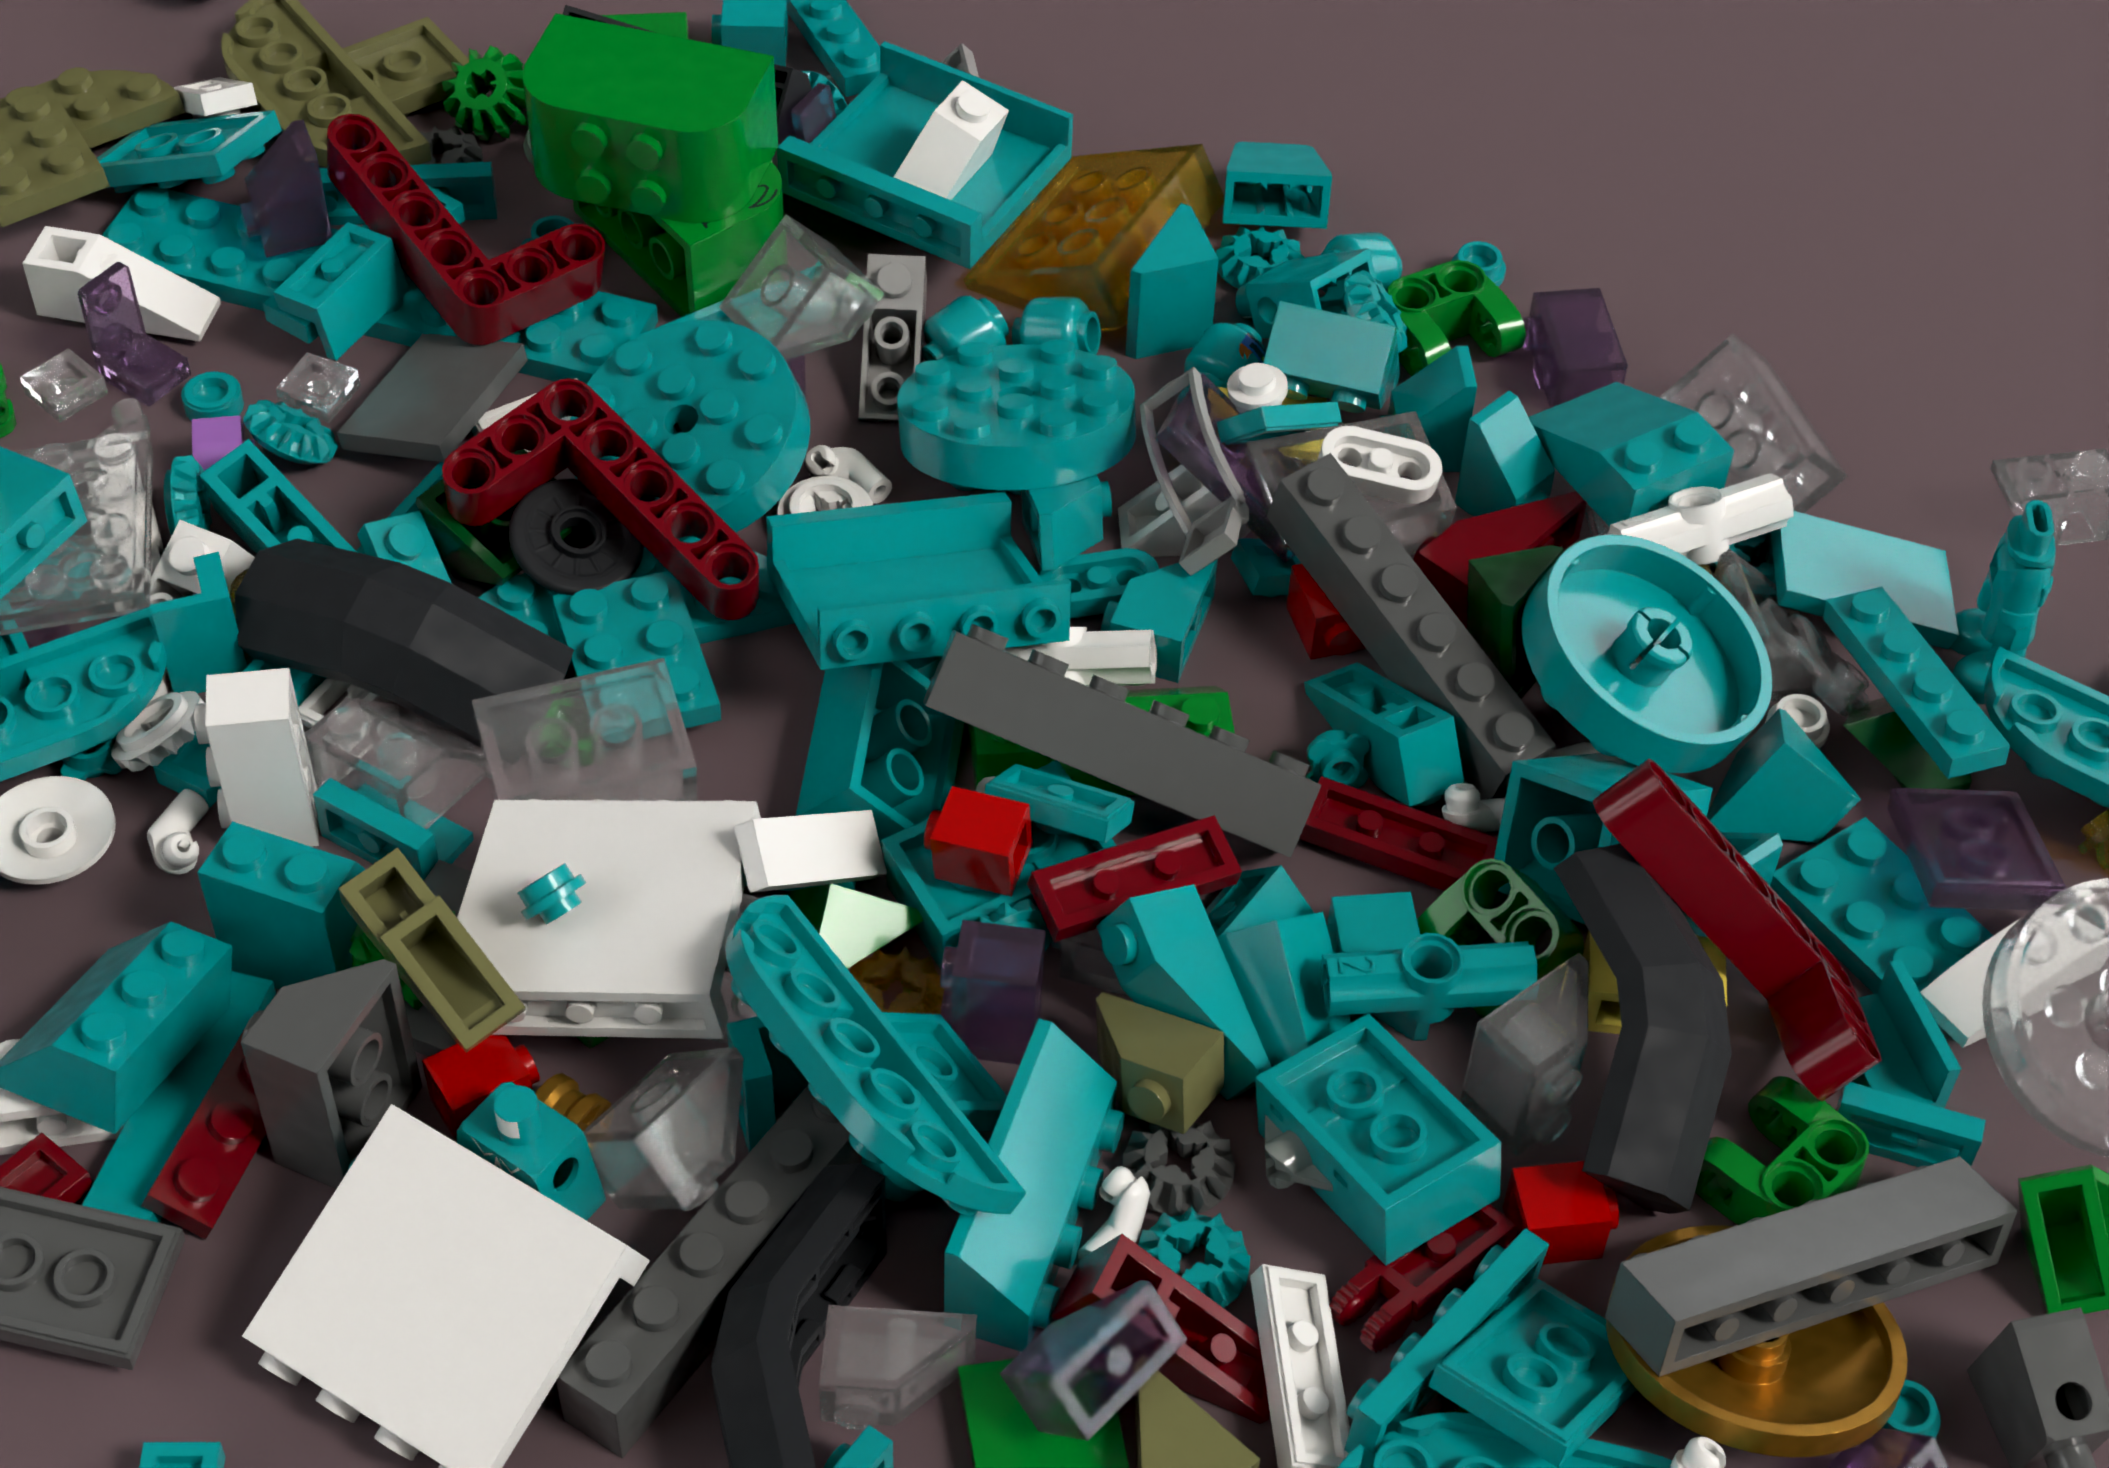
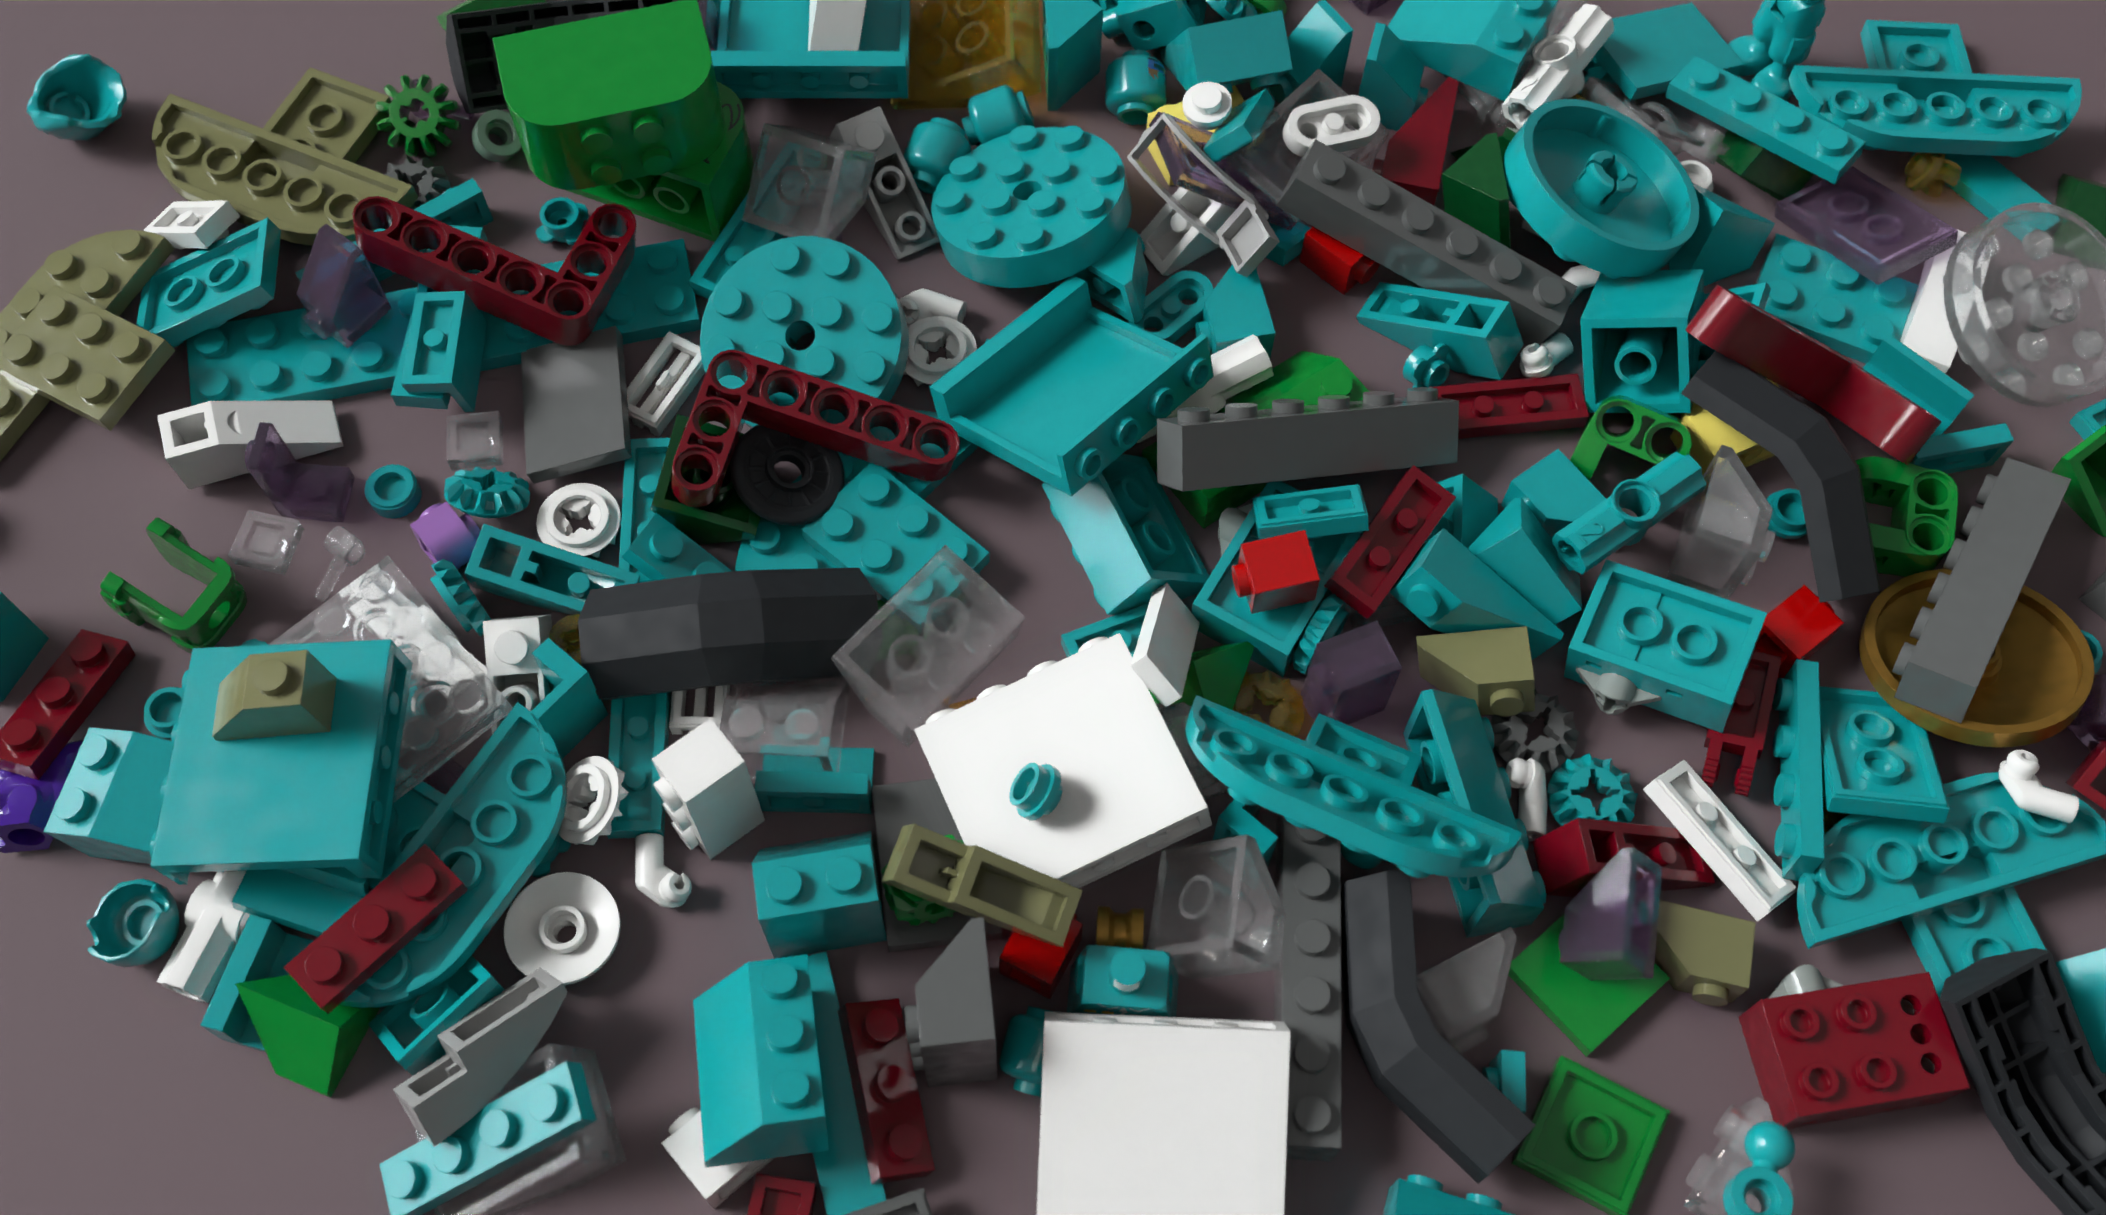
camera: 30 degrees left, 15 degrees up
(367, 482) = (577, 502): none -> white gear

